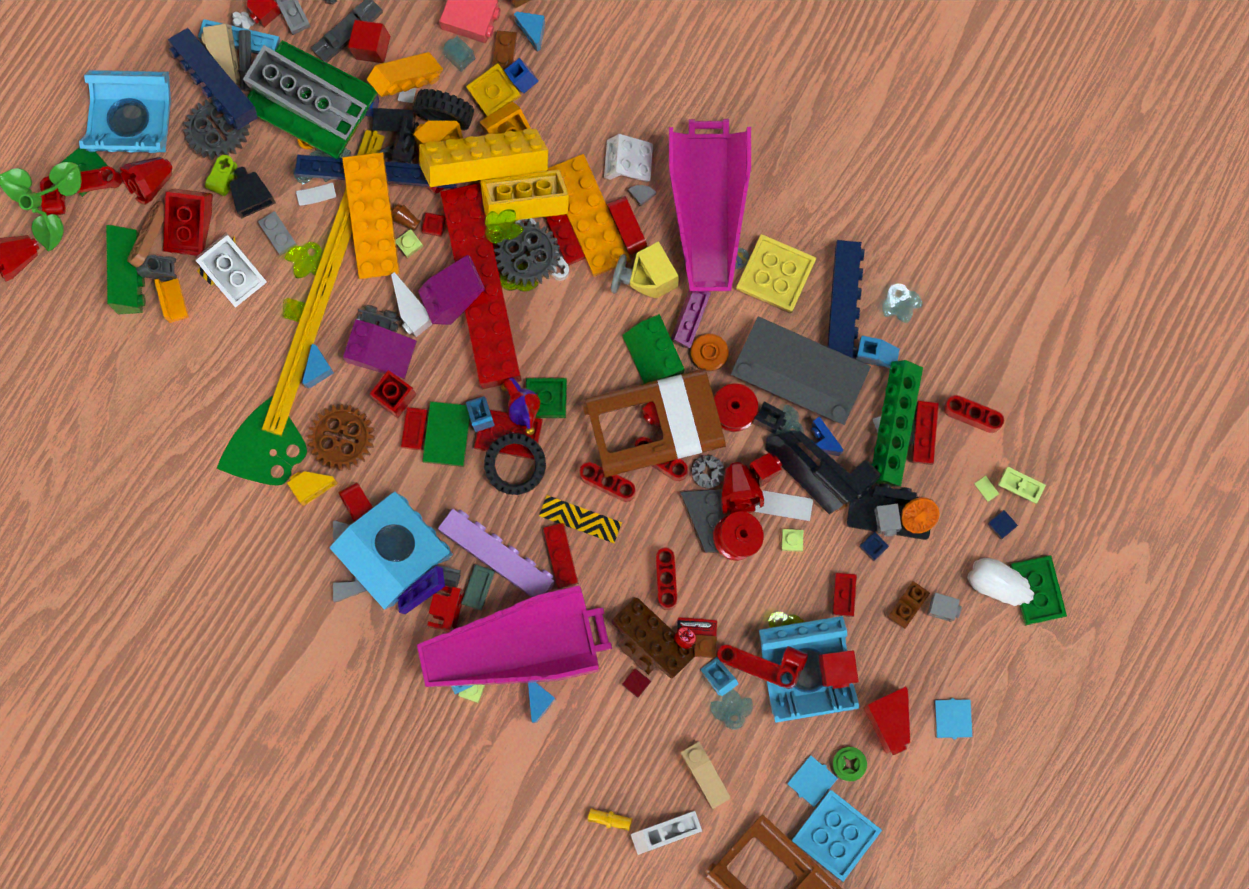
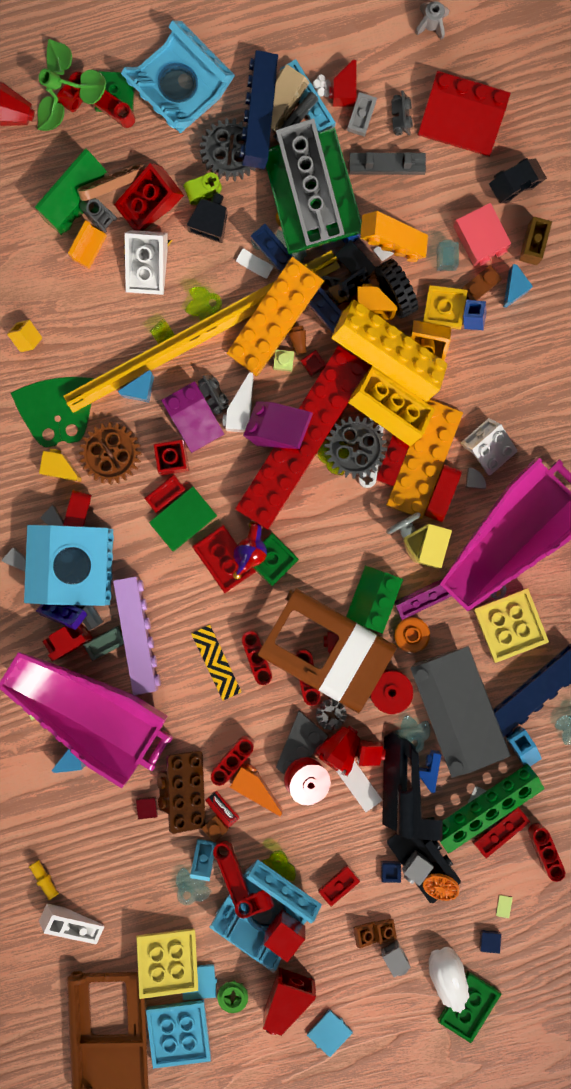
camera: 45 degrees right, 10 degrees up
(146, 177) = (150, 139): red cone -> none
(187, 412) = (24, 335): none -> yellow panel
(277, 233) = (202, 266): light grey plate -> none
(369, 41) = (393, 187): red head -> none
(480, 414) = (216, 527): dark azure slope -> none
(491, 473) = (187, 597): black tyre -> none
(503, 224) = (355, 413): clear neon green plate -> none
(561, 555) = (179, 675): red plate -> none
(685, 637) = (206, 812): tile -> none
(701, 583) = (252, 786): none -> orange slope
(705, 775) = (133, 910): tan slope -> none
(768, 409) = (410, 731): black window -> none
(770, 785) = (167, 963): none -> light yellow plate
(792, 540) = (341, 815): yellowish green plate -> none
(1021, 485) = (529, 931): yellowish green hinge -> none

